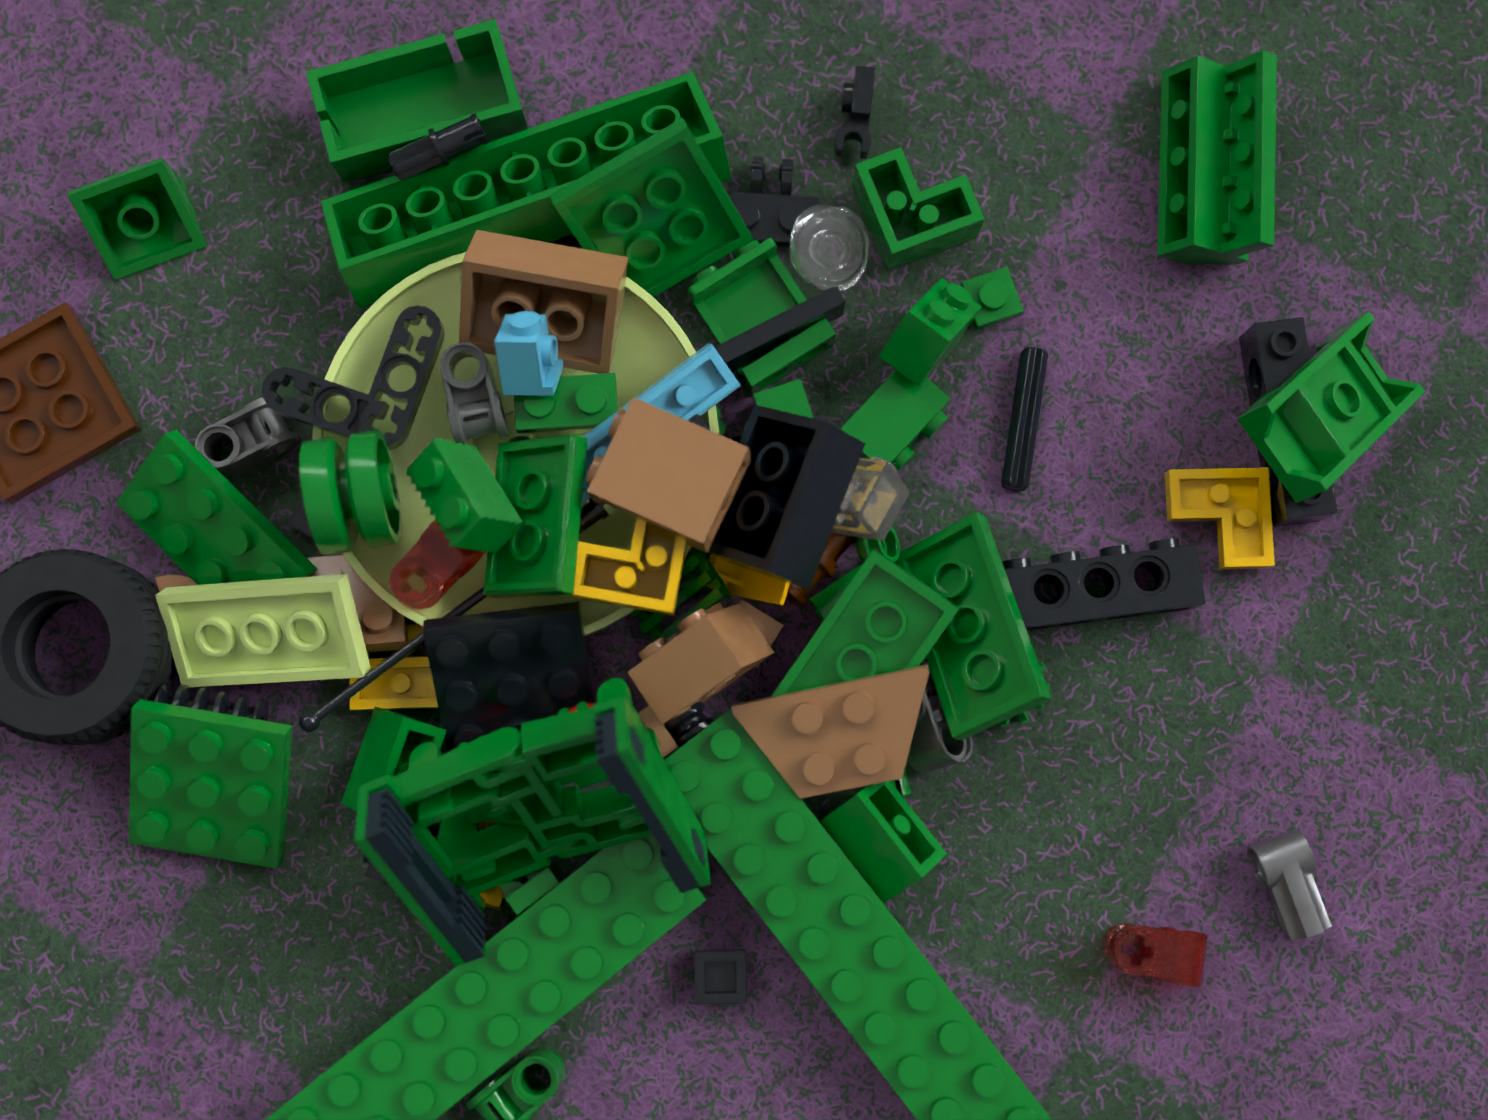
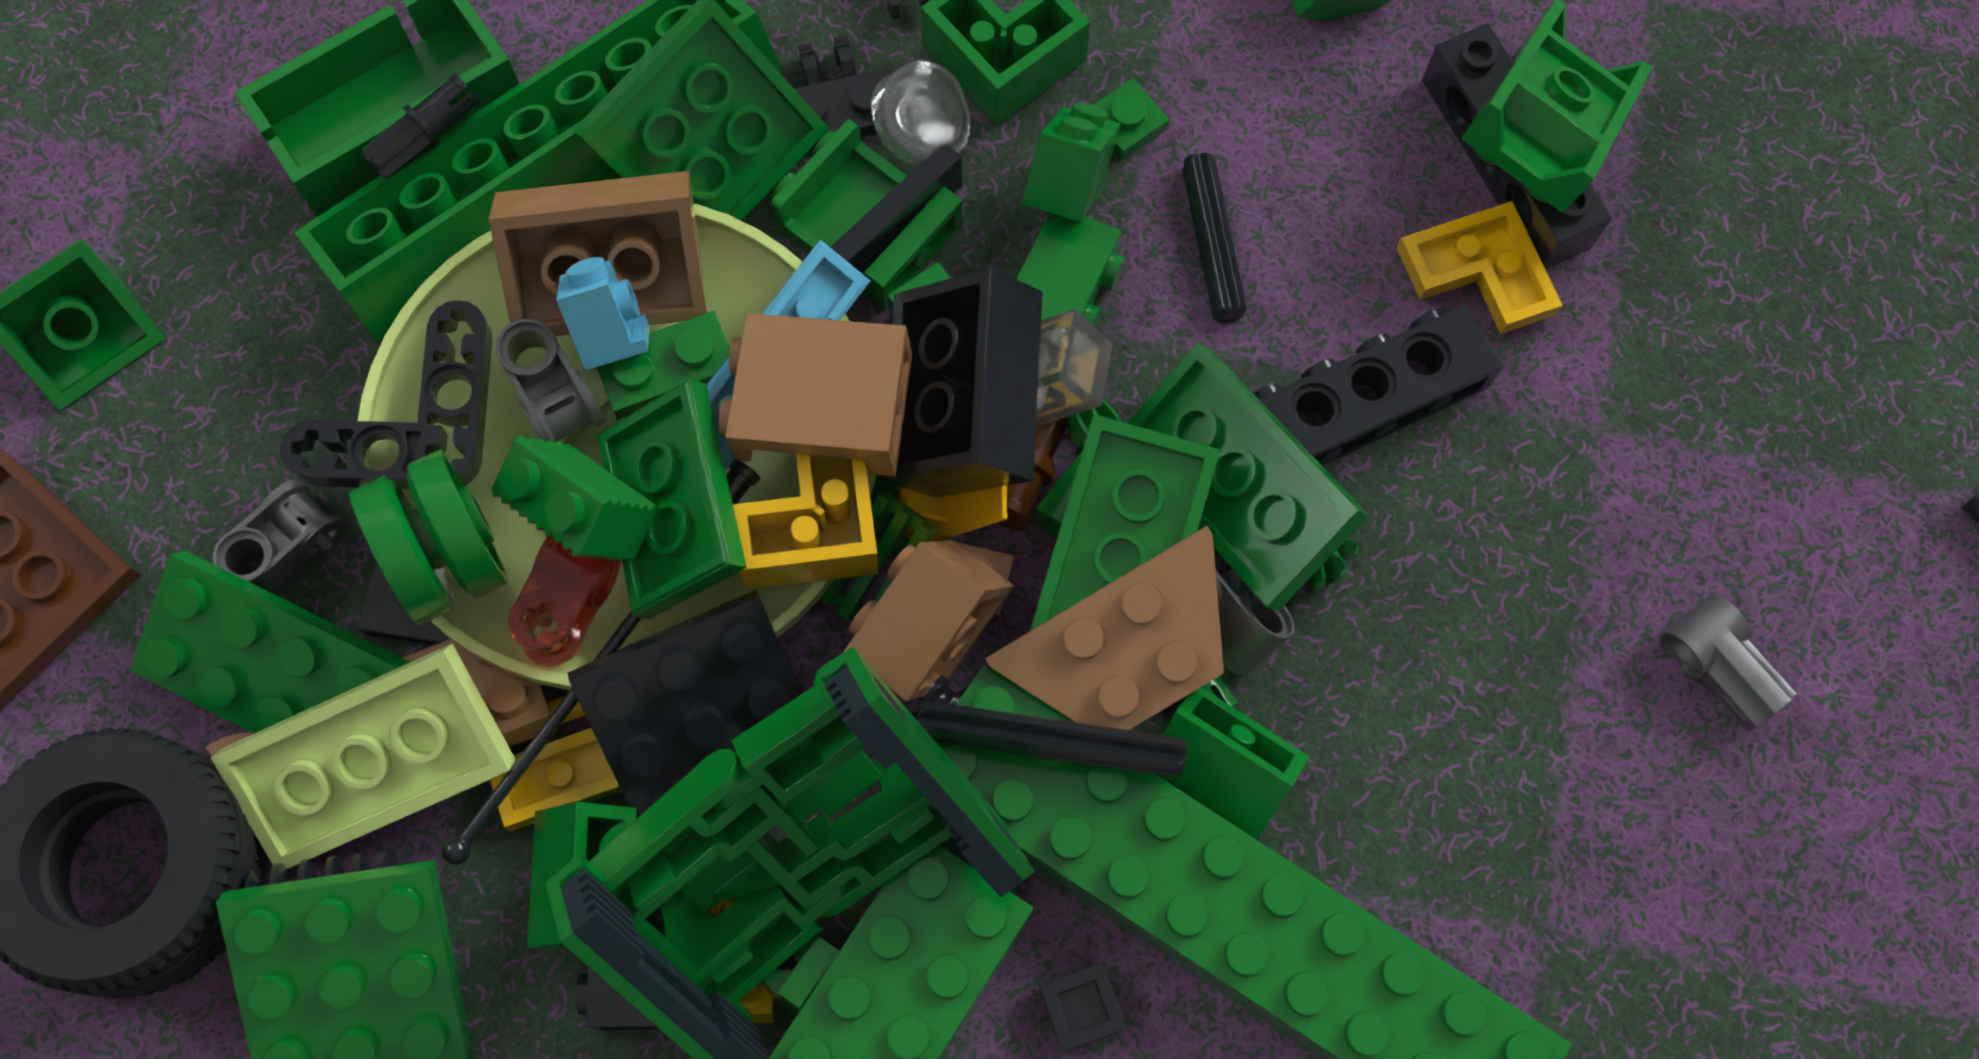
camera: 20 degrees left, 10 degrees down
(758, 785) = (1053, 739): none -> black axle
(1163, 952) = (1610, 795): clear red piece -> none

